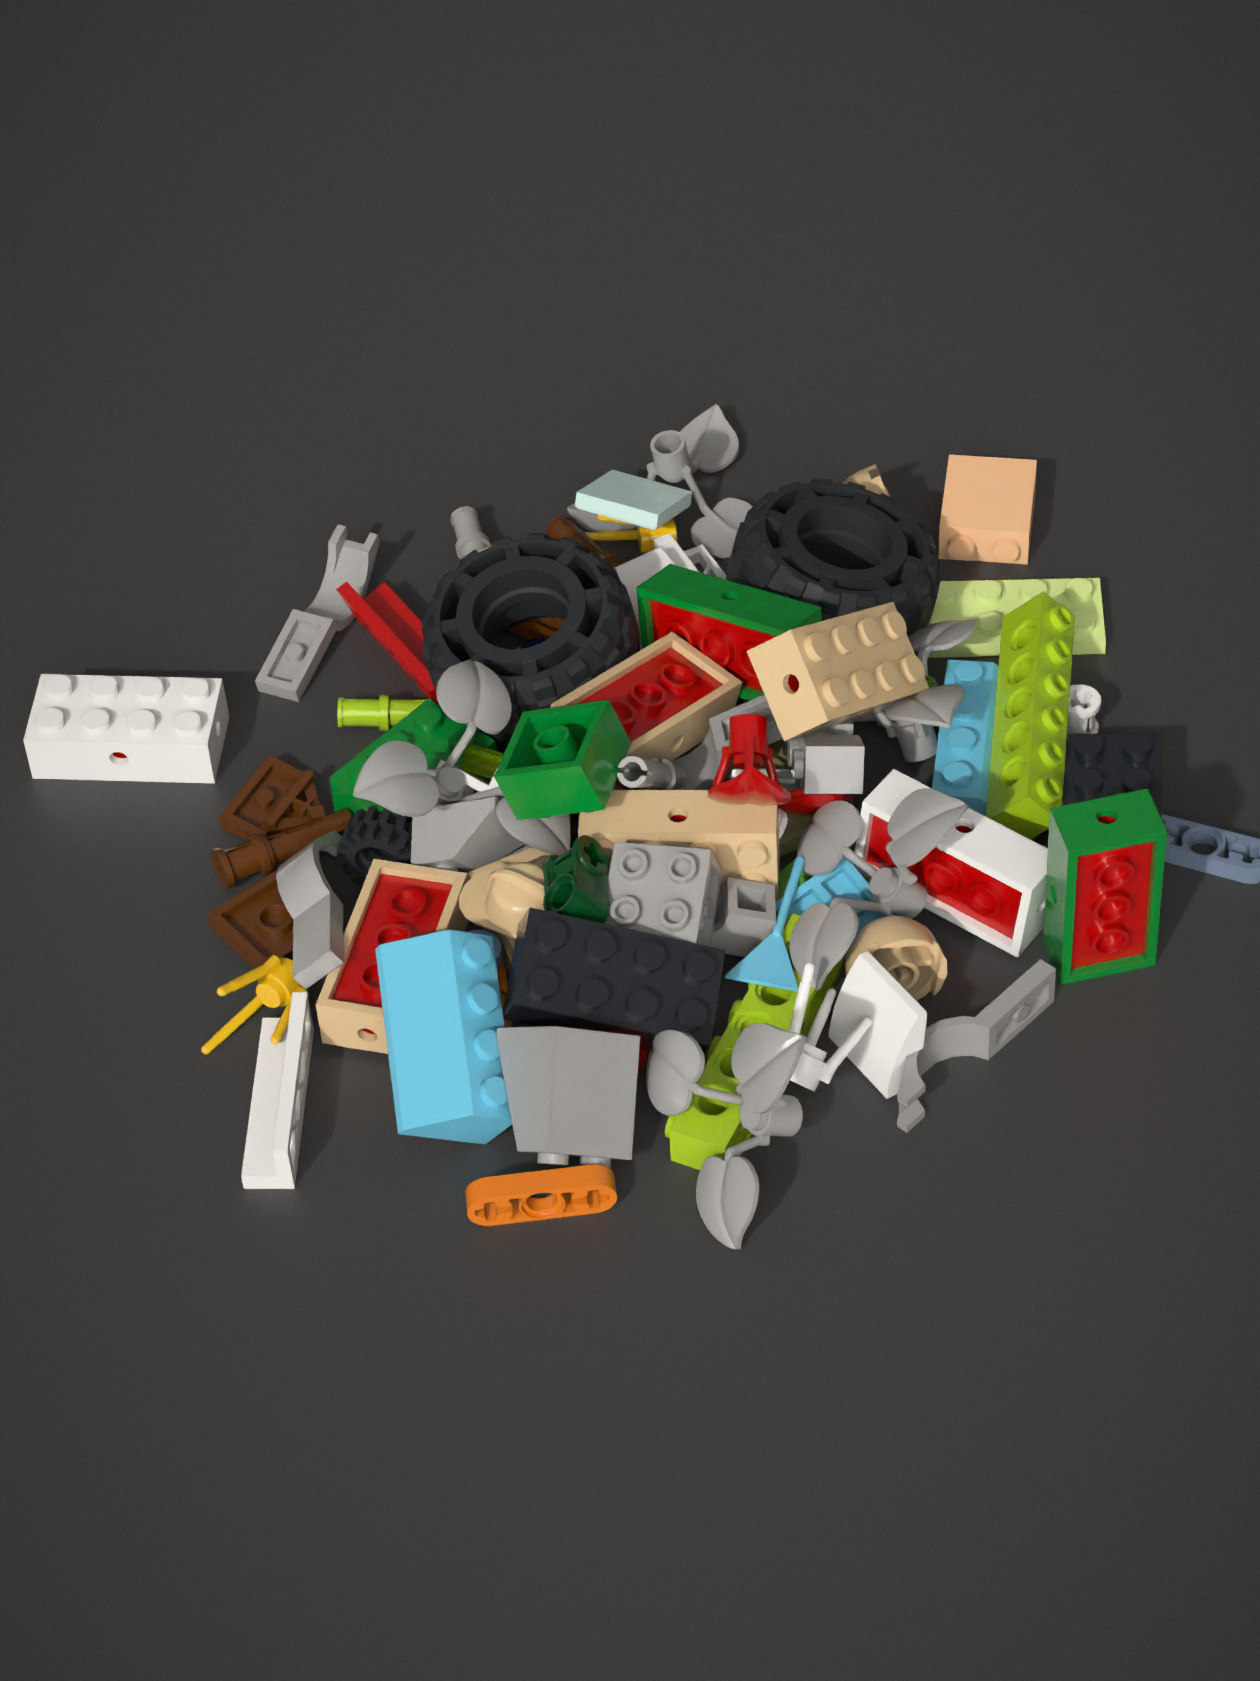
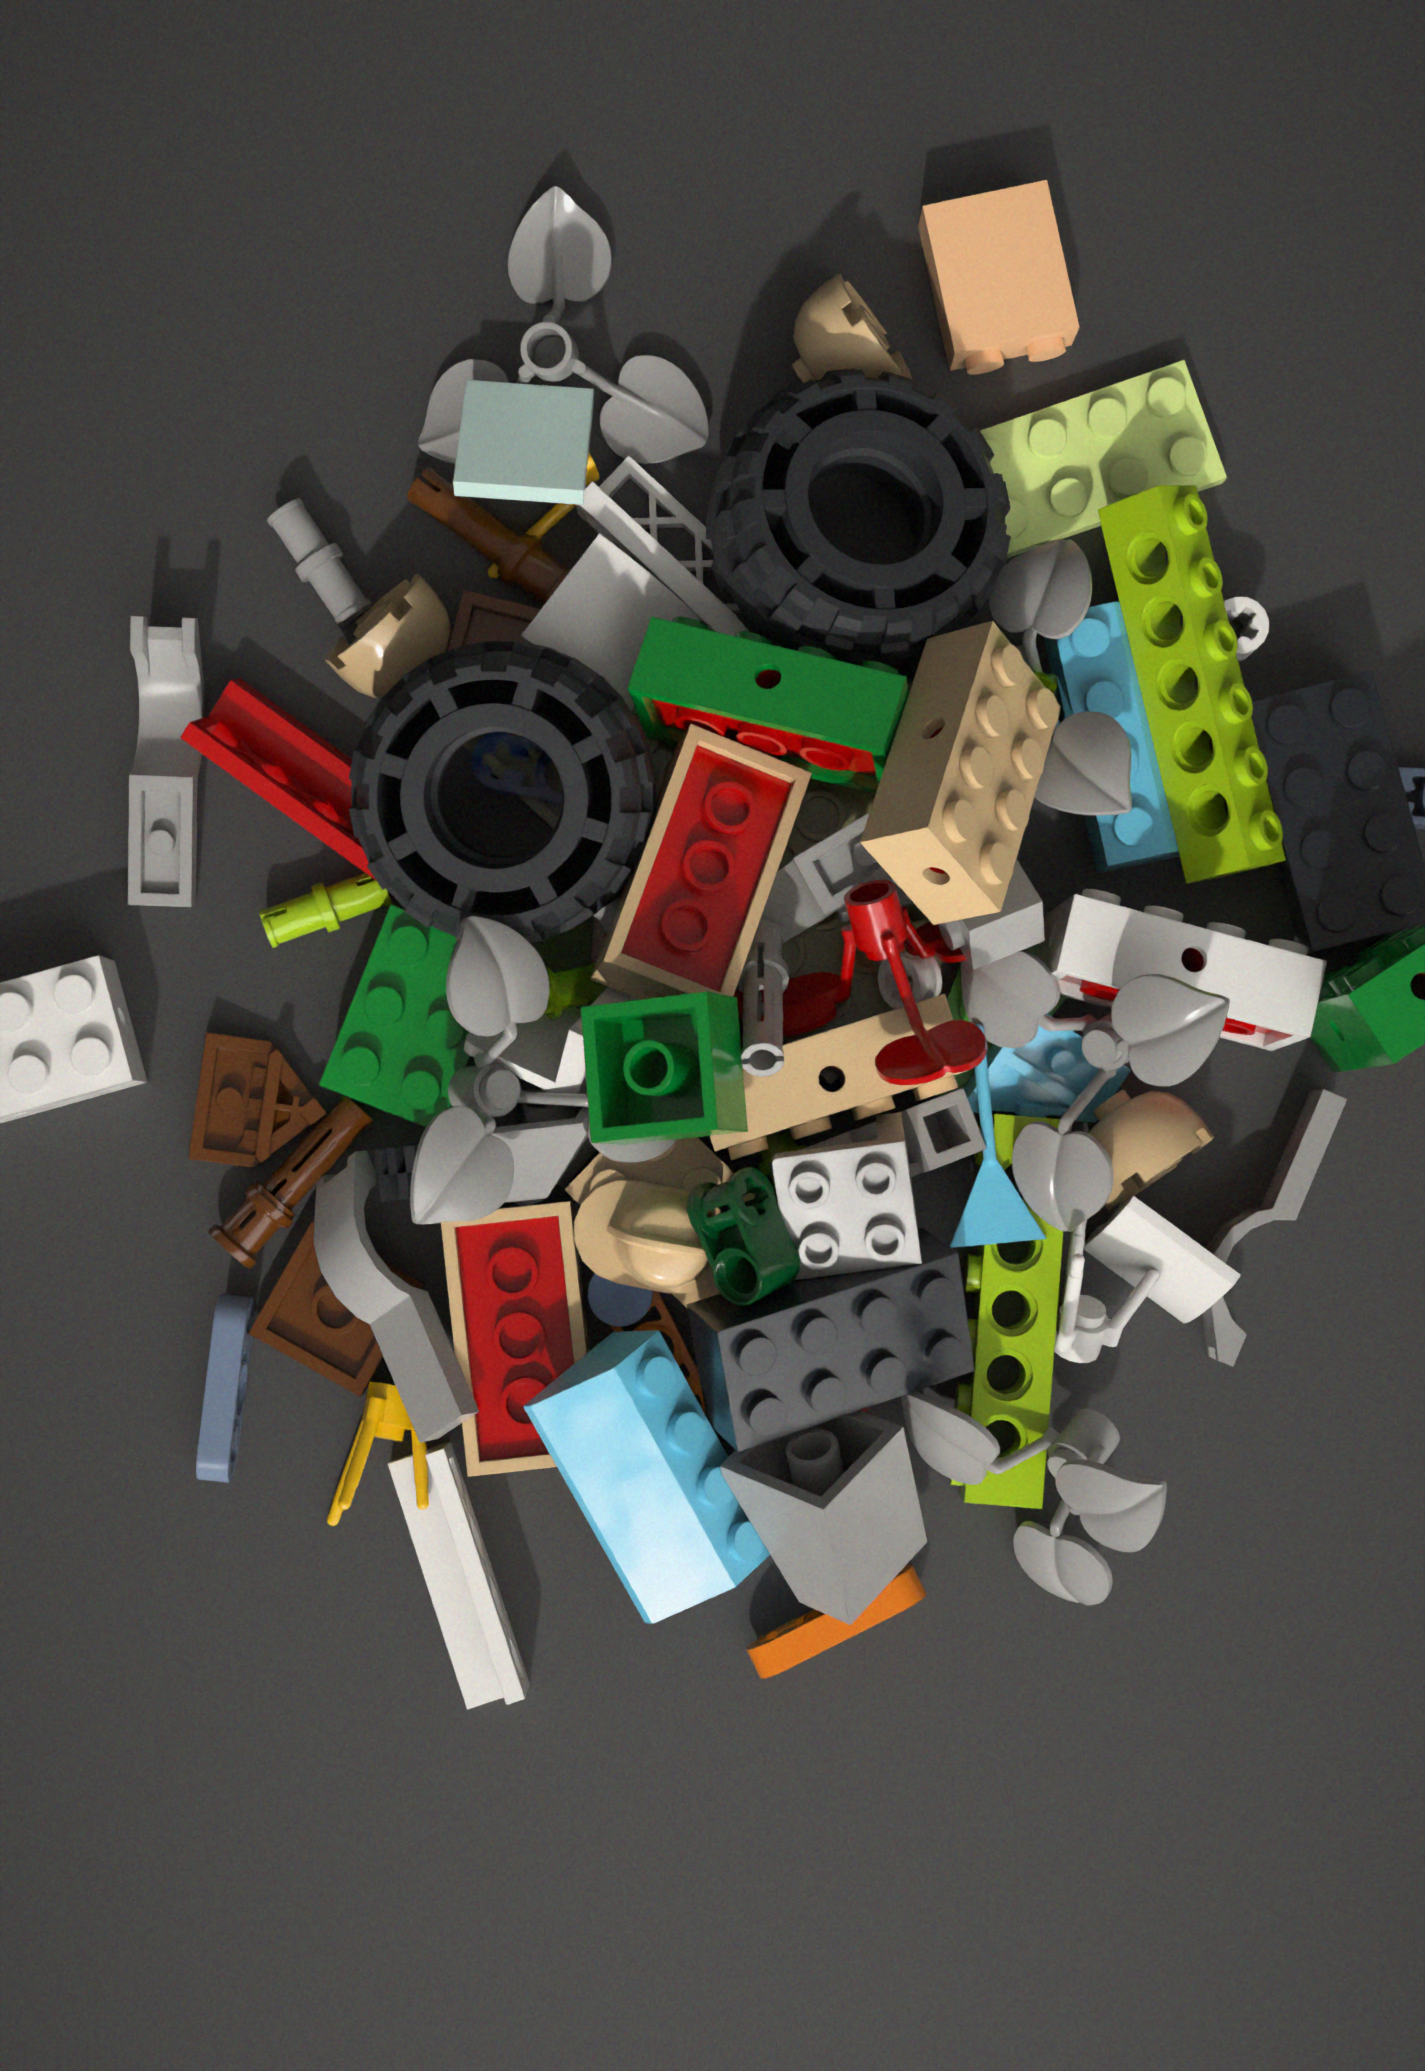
camera: 25 degrees left, 40 degrees up
(172, 946) = (225, 1388): none -> sand blue beam

